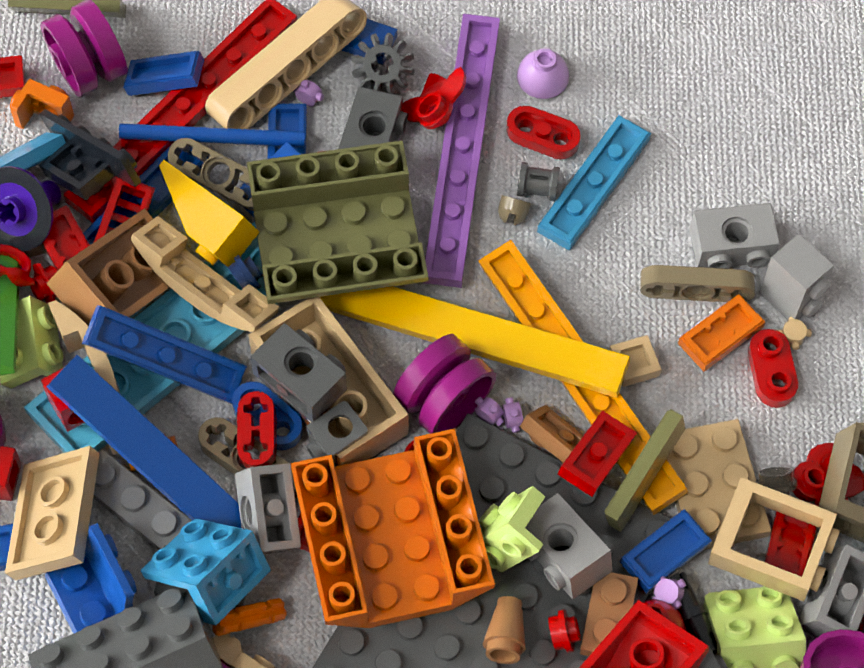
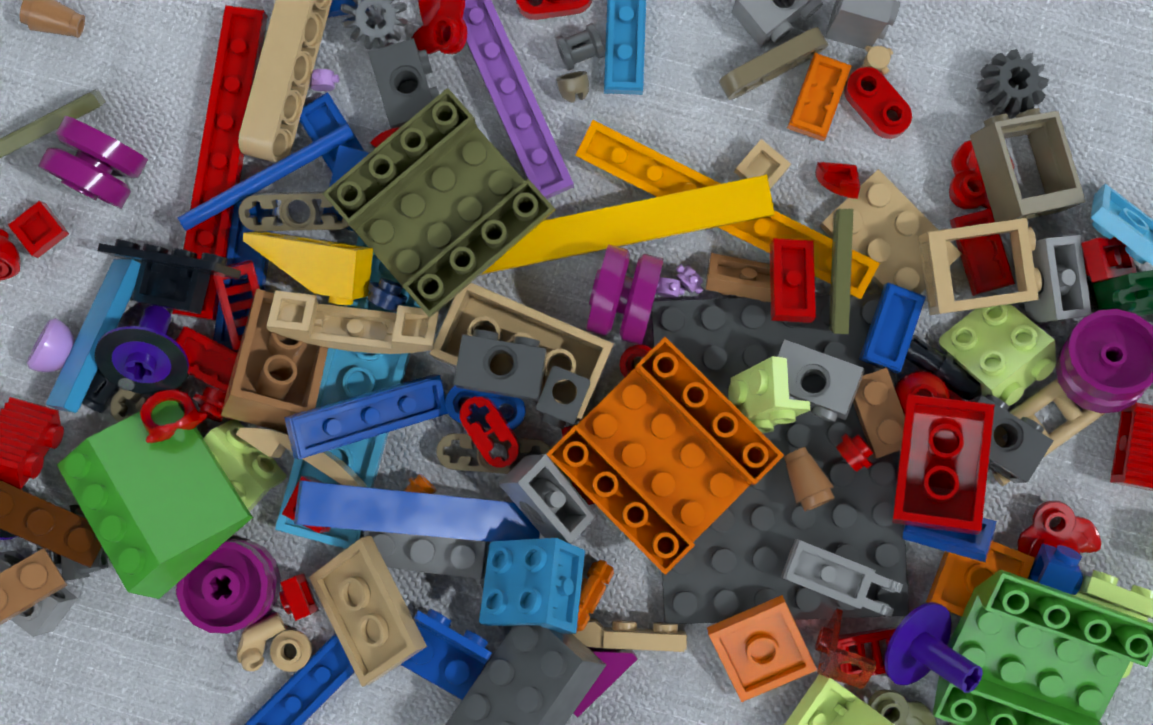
camera: 30 degrees left, 20 degrees up
(36, 98) = (80, 234): orange bracket -> none
(163, 73) = (181, 140): blue tile -> none
(670, 591) = (917, 362): lavender piece -> none
(698, 407) = (839, 178): none -> red tile
(778, 479) = (946, 210): clear smoke plate -> none

